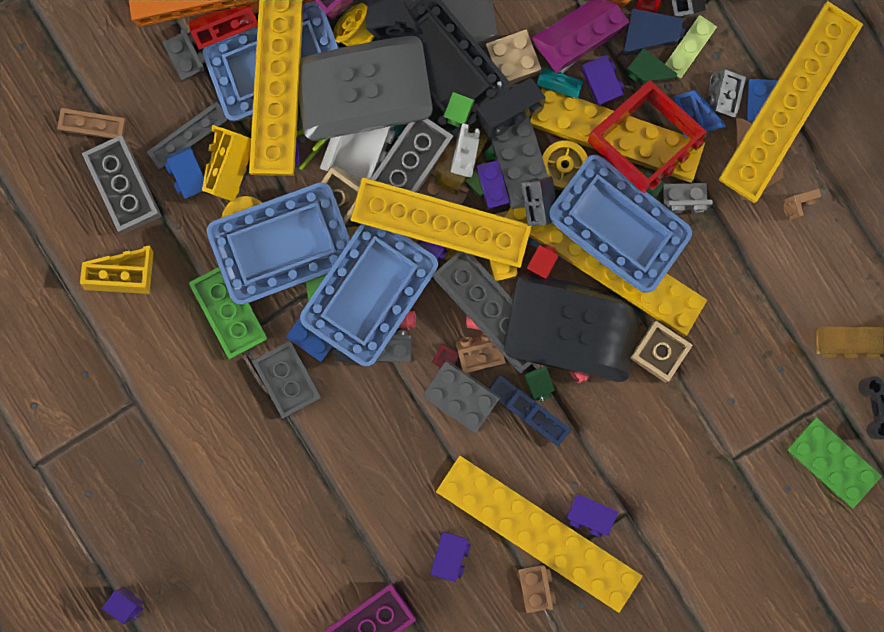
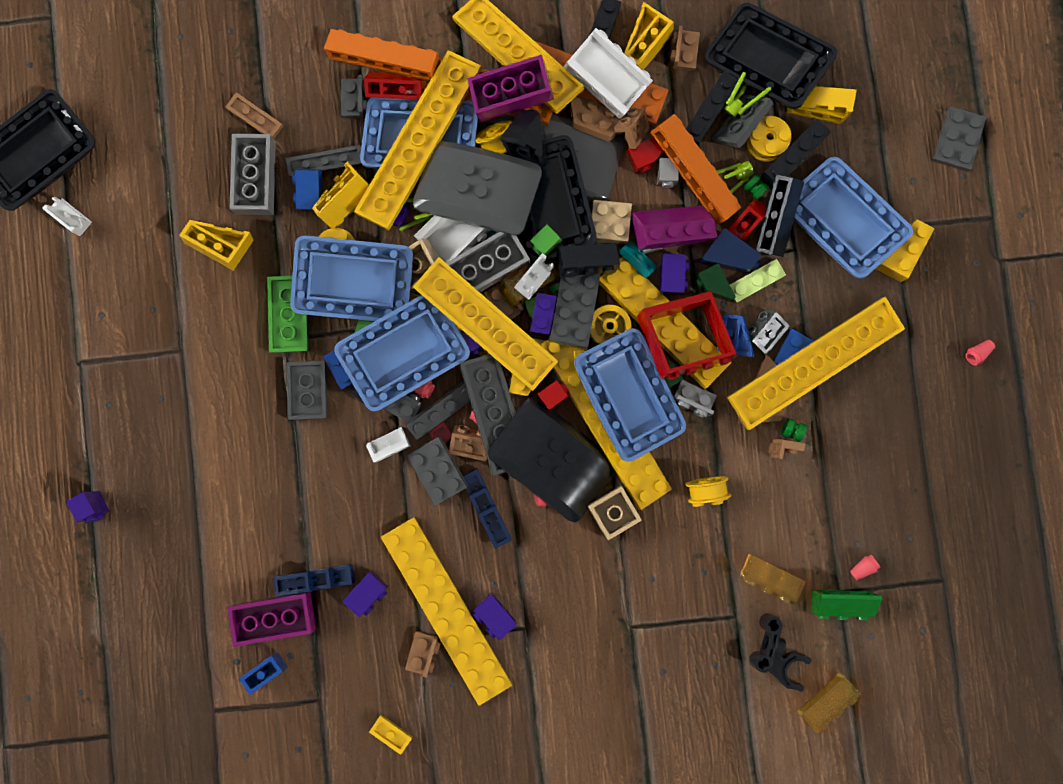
camera: 30 degrees right, 0 degrees up
(389, 568) = (314, 580): none -> dark blue slope
(397, 394) = (388, 445): none -> white hinge
(432, 334) = (438, 411): none -> dark grey plate
(538, 200) = (573, 343): black hinge -> none
(539, 383) = (504, 491): dark green slope -> none
(744, 282) = (708, 490): none -> yellow wheel
(800, 180) = (794, 430): none -> green wheel
(834, 463) = (710, 670): bright green plate -> none

